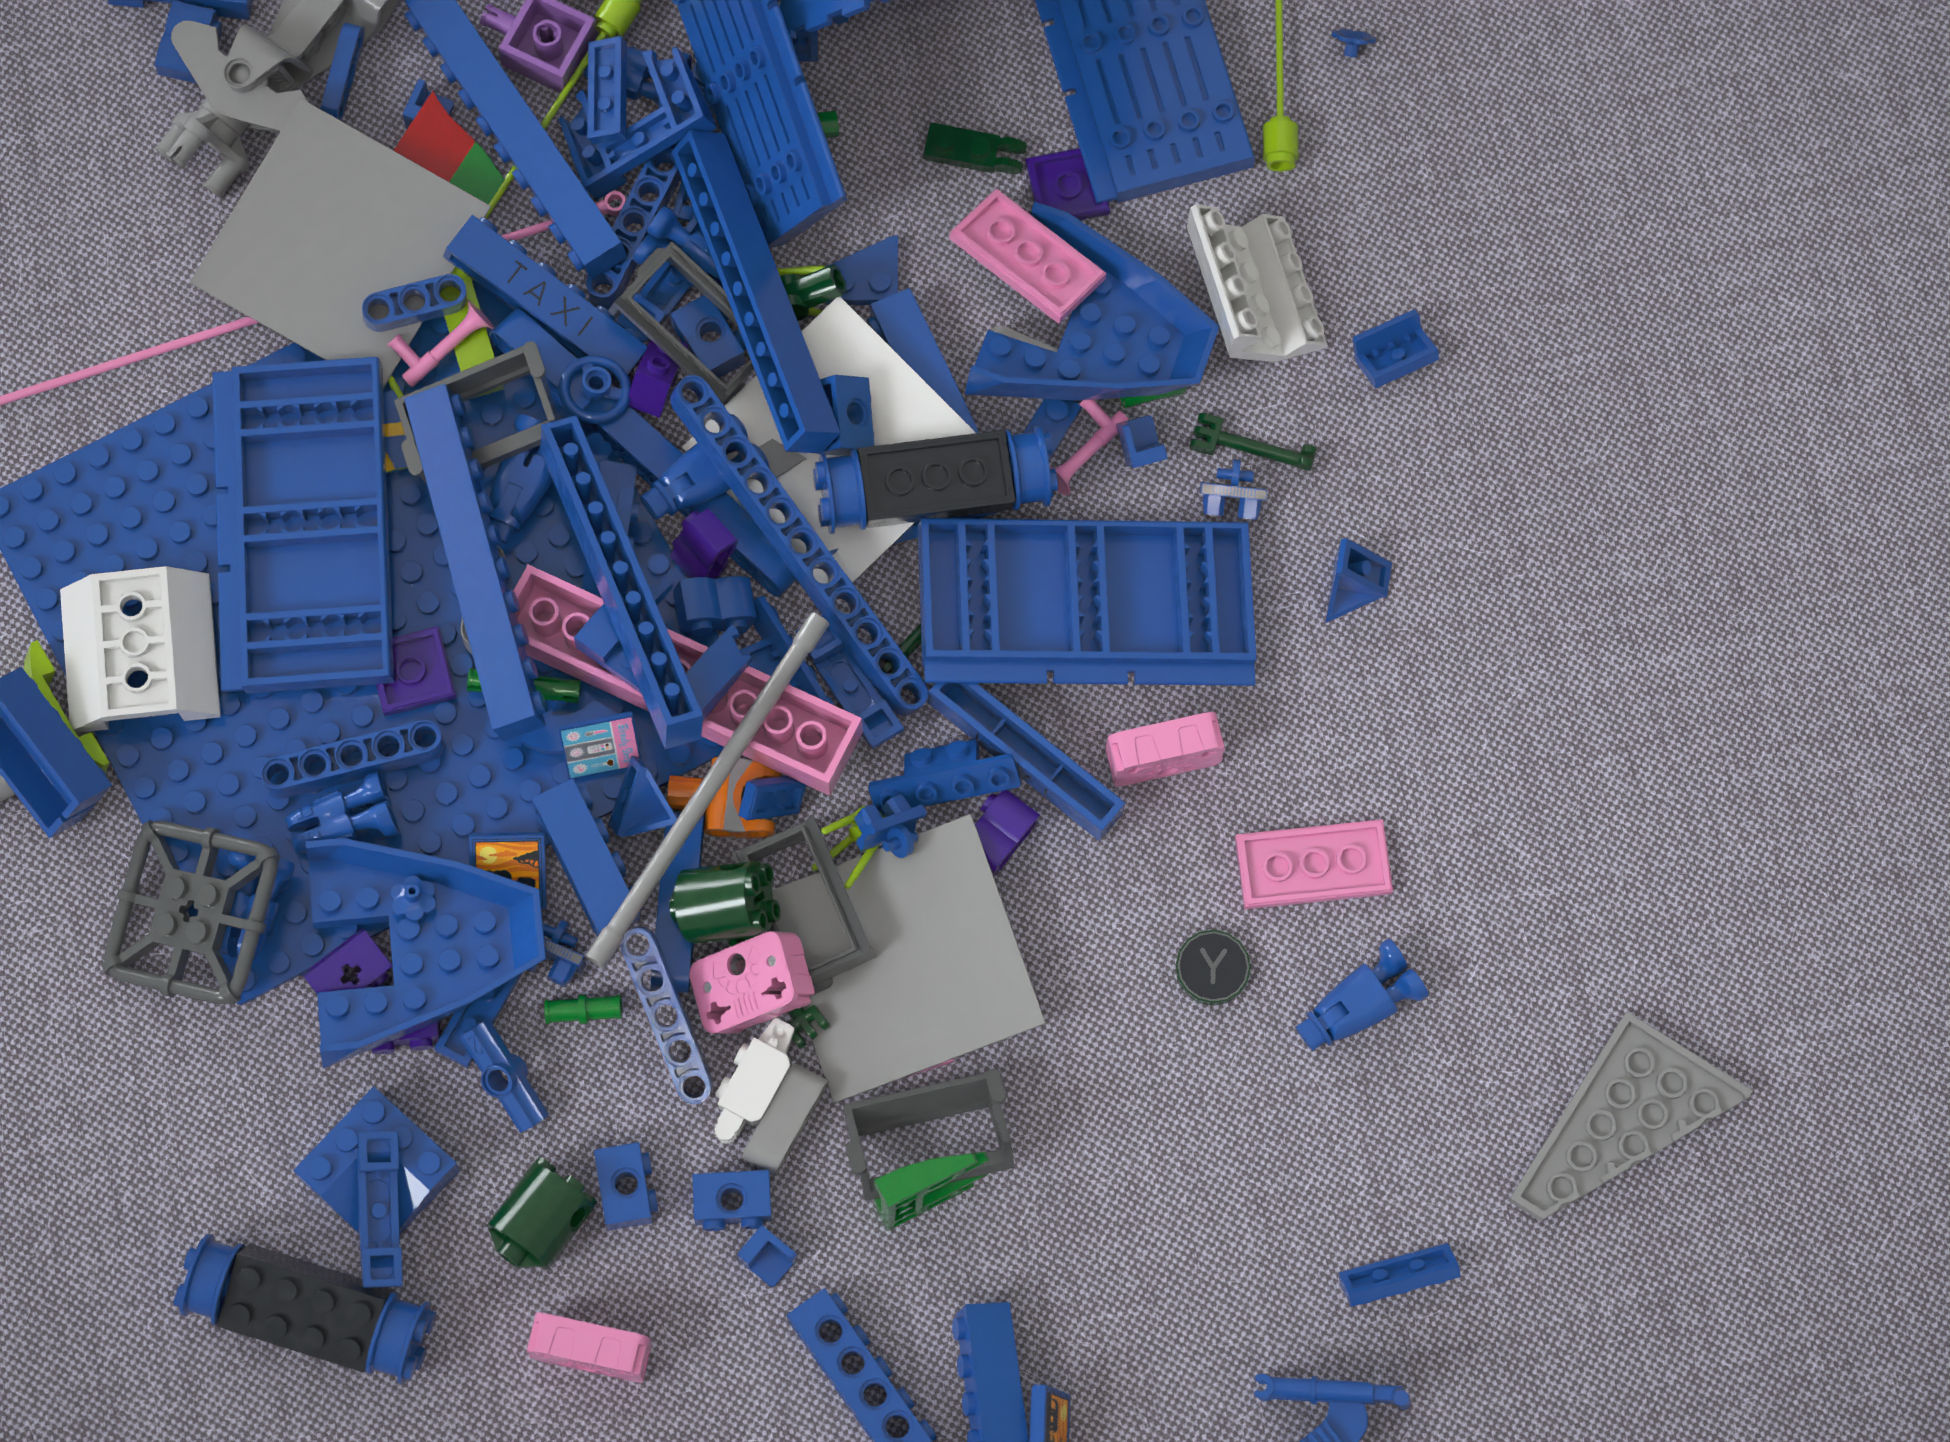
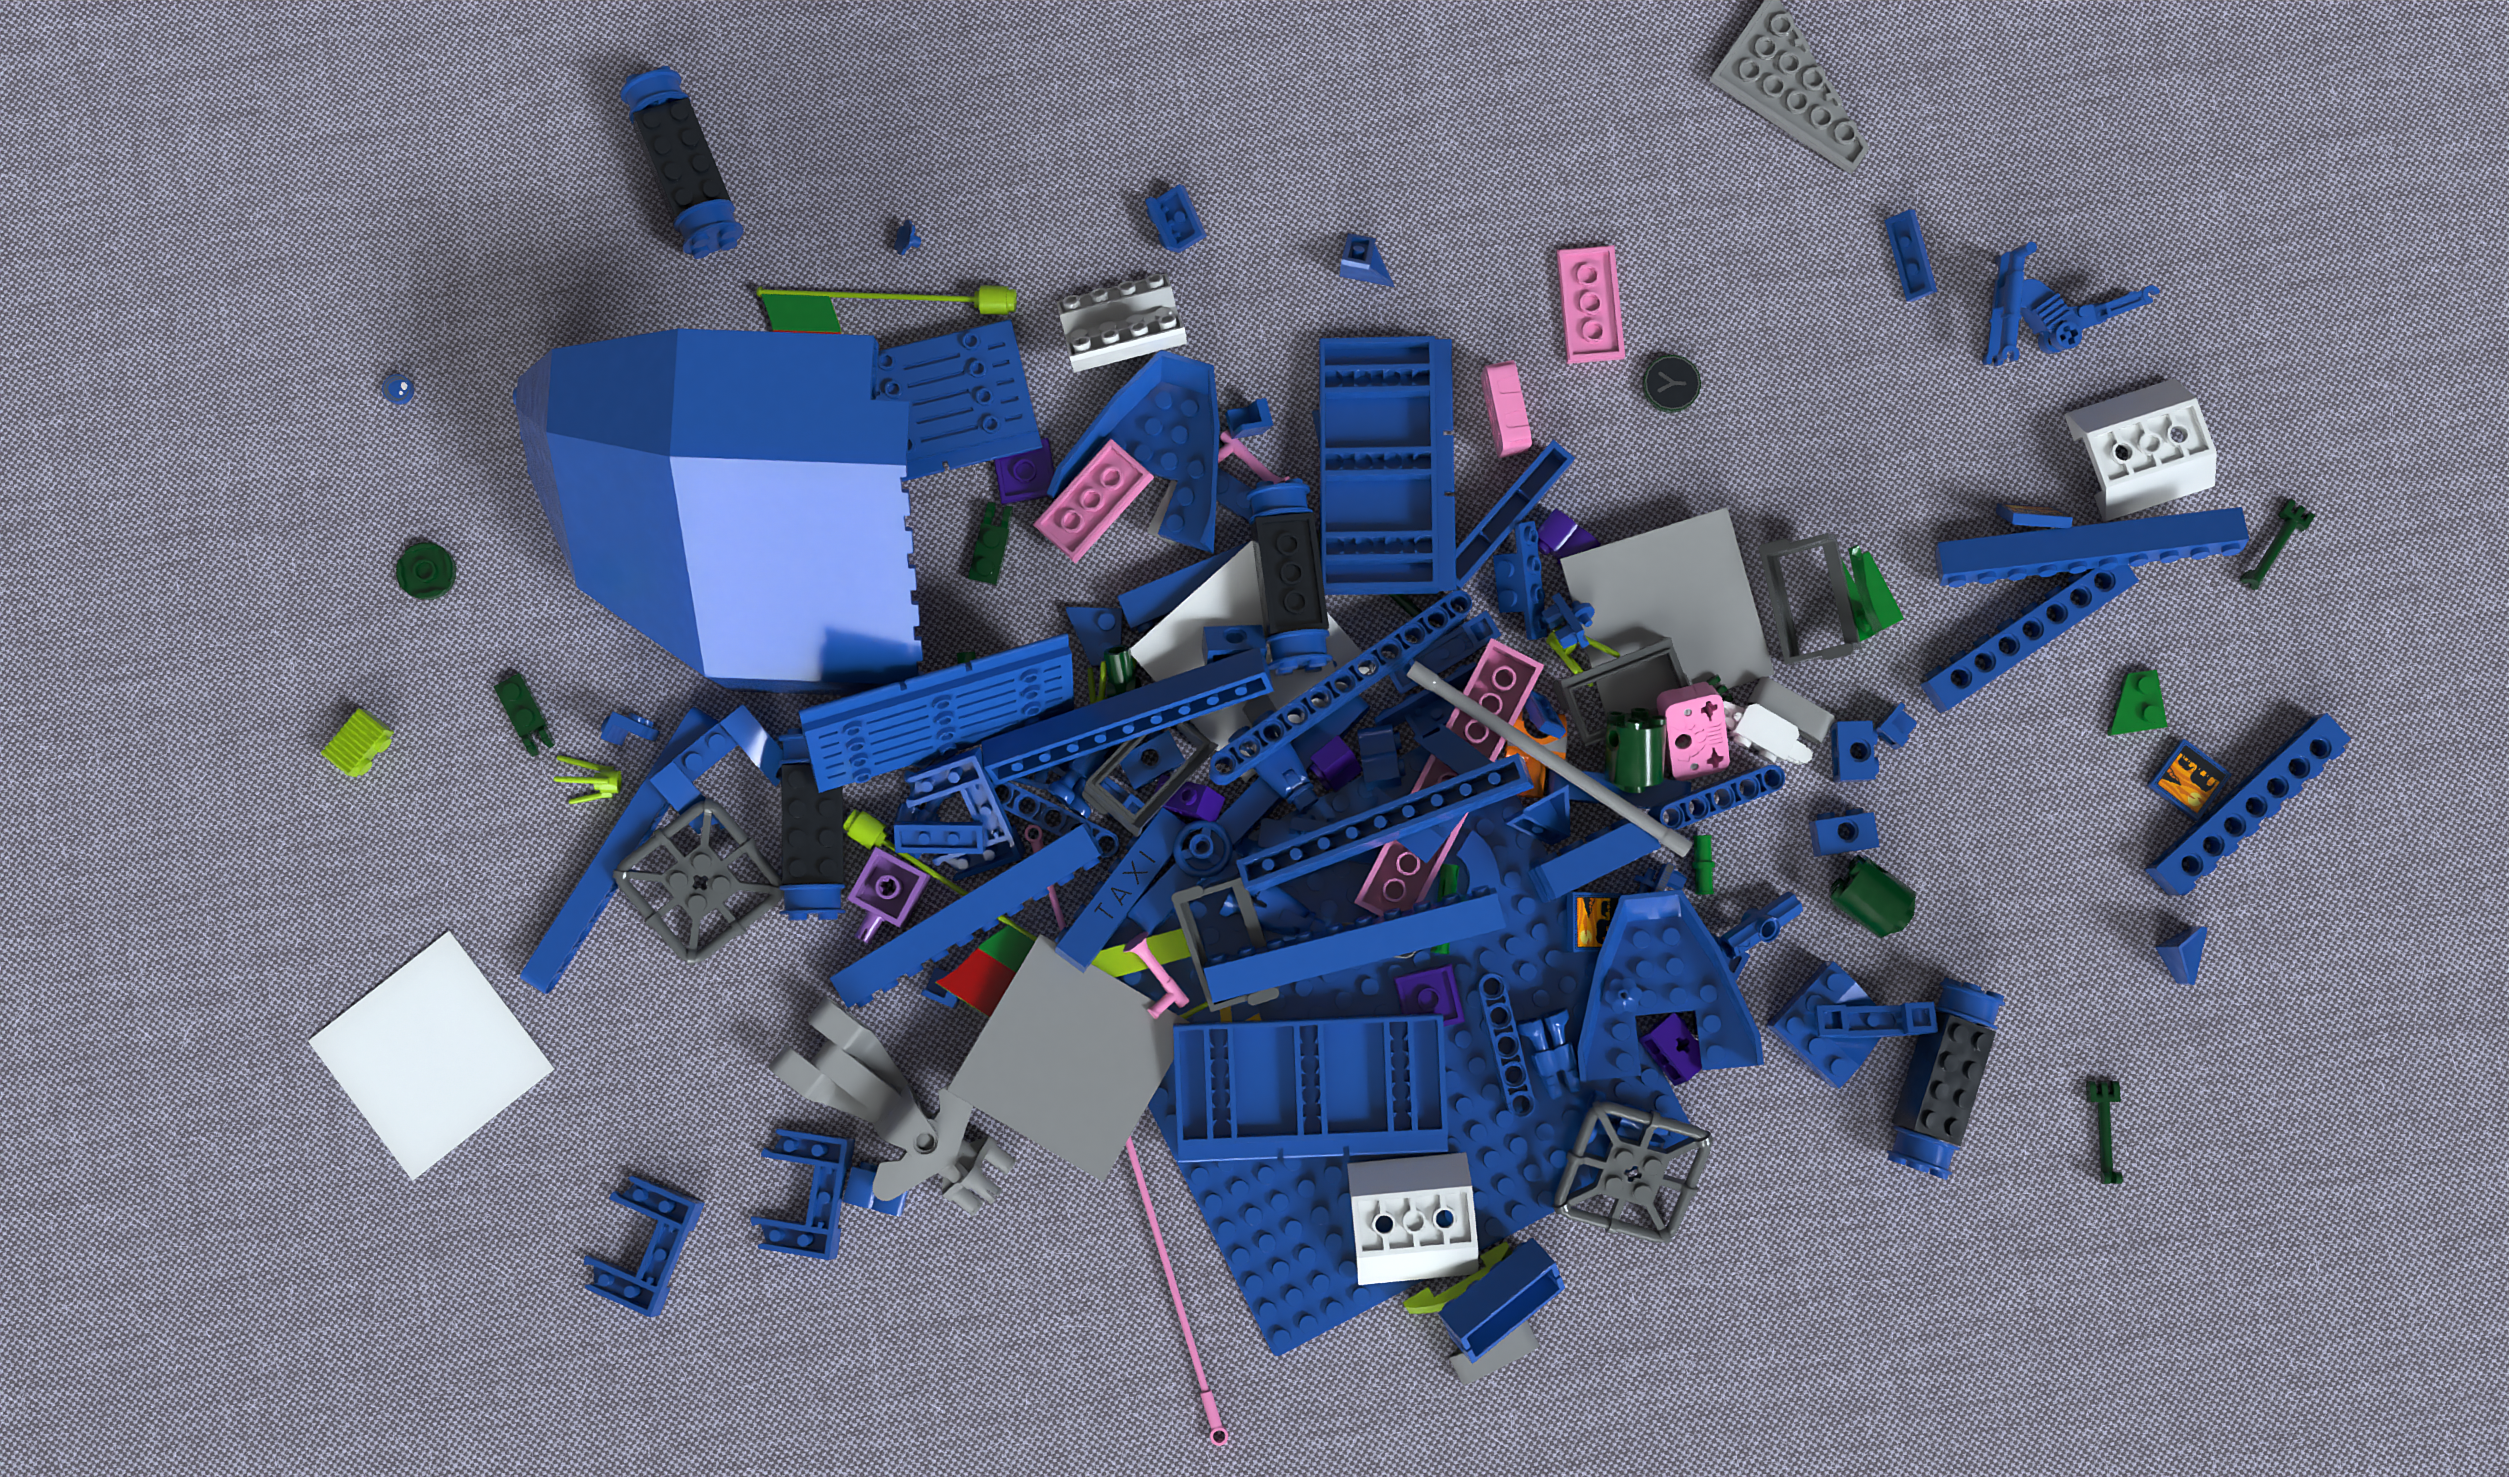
camera: 80 degrees left, 10 degrees up
(343, 70) = (912, 1059): blue beam -> none
(427, 289) = (1126, 980): blue beam -> none
(589, 1347) = (1974, 859): bright pink axle -> none
(599, 744) = (1500, 847): piece -> none
(1215, 436) = (1241, 362): dark green hinge -> none
(1249, 498) = (1287, 347): blue hips -> none
(1362, 1000) = (1700, 273): blue piece -> none

